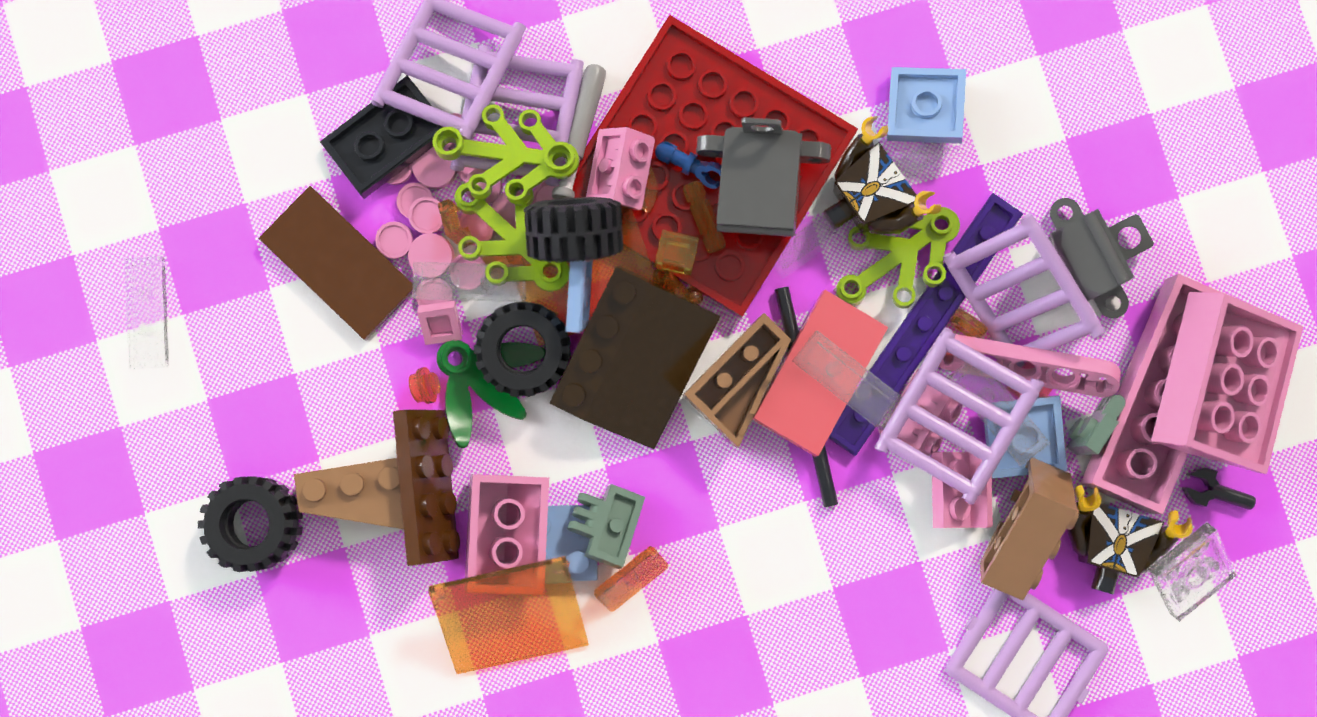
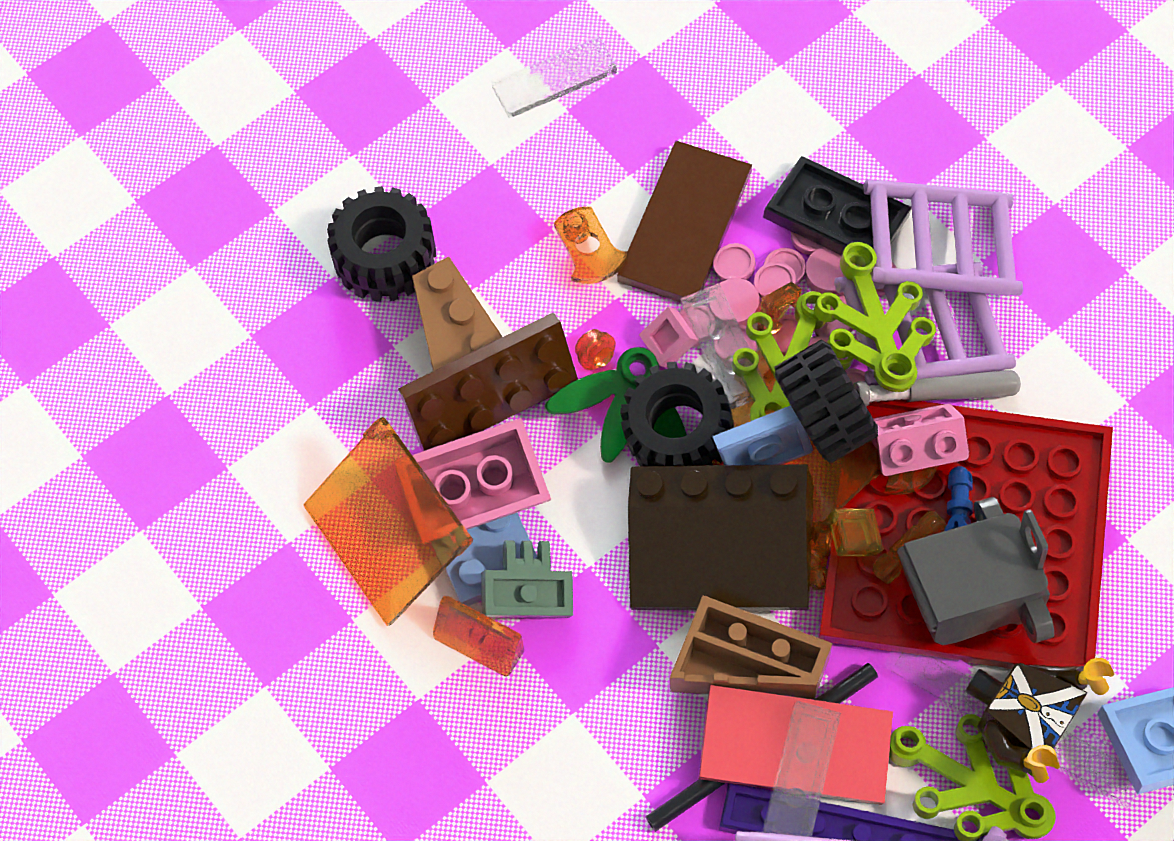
camera: 70 degrees right, 20 degrees down
(348, 356) = (592, 266): none -> clear orange piece

